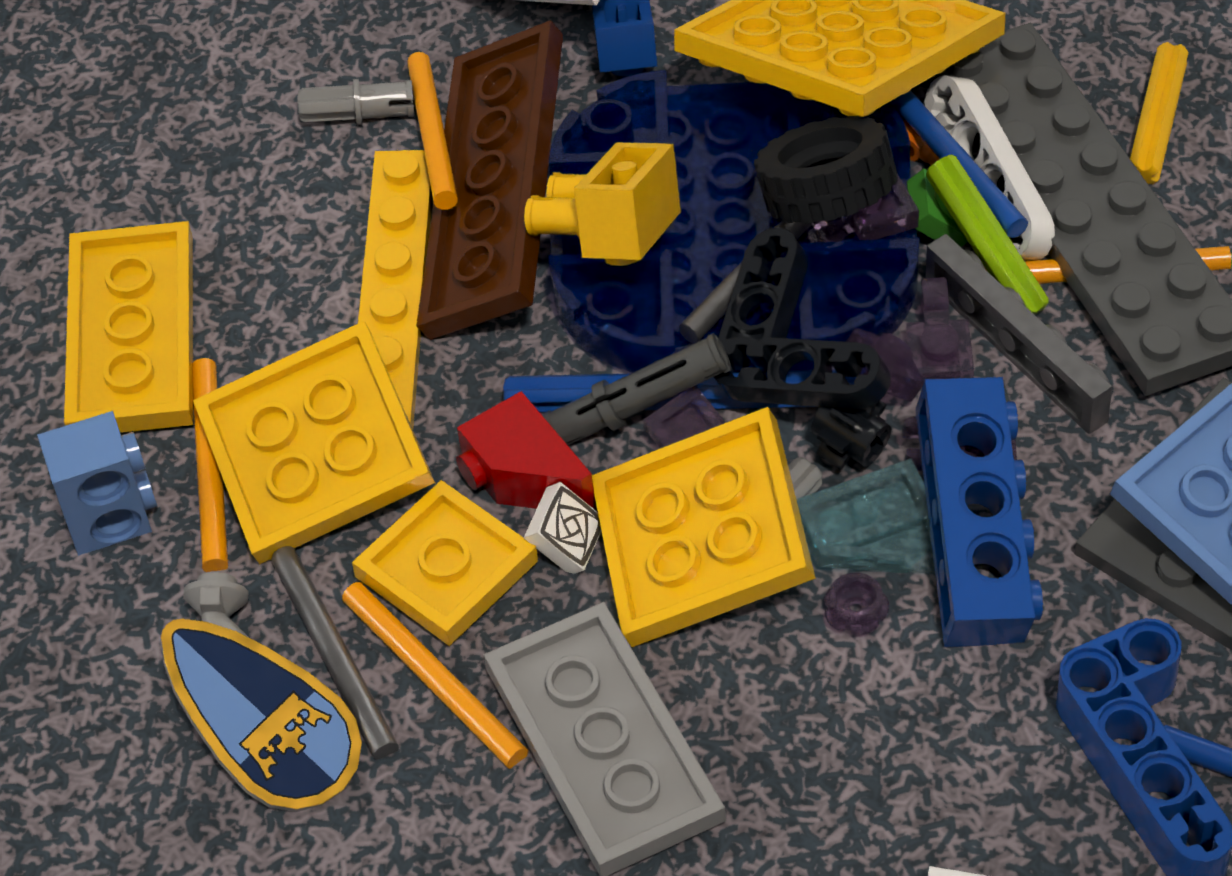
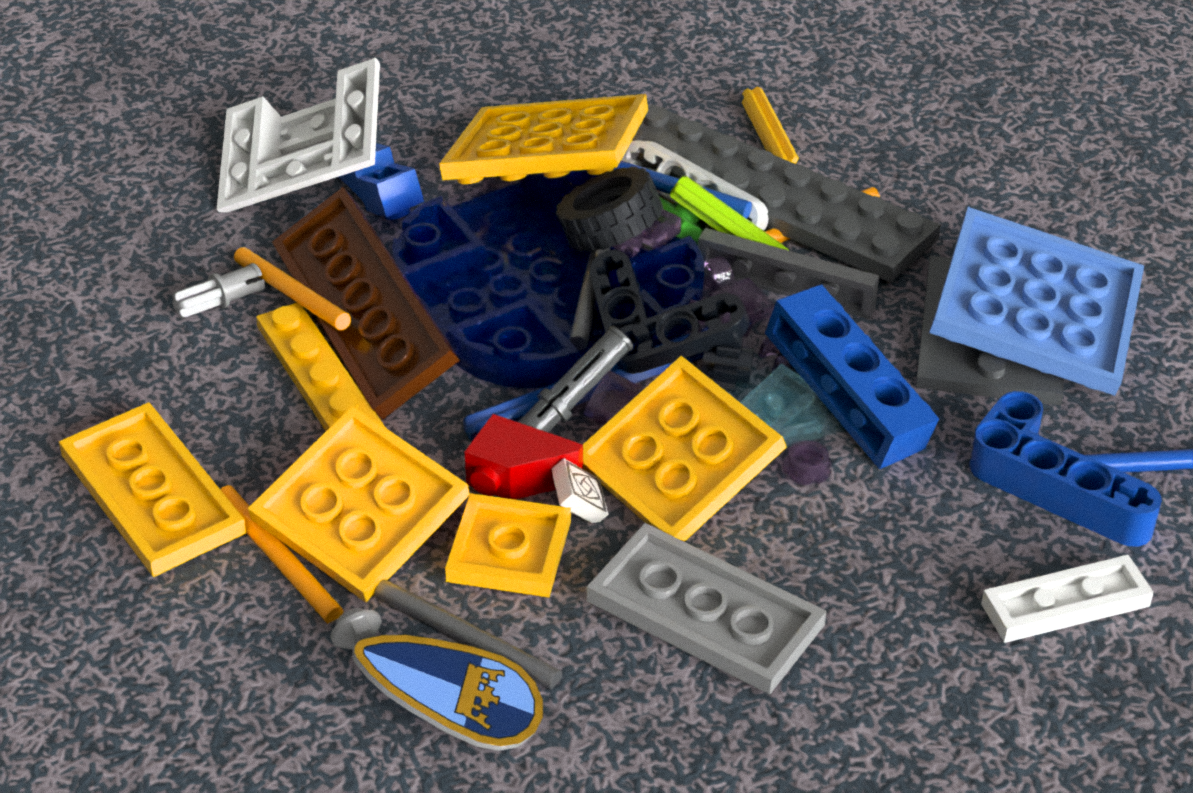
camera: 35 degrees left, 10 degrees down
(97, 481) = (217, 584): medium blue brick -> none
(435, 675) = (552, 619): light orange bar -> none
(615, 206) = (482, 276): yellow brick -> none

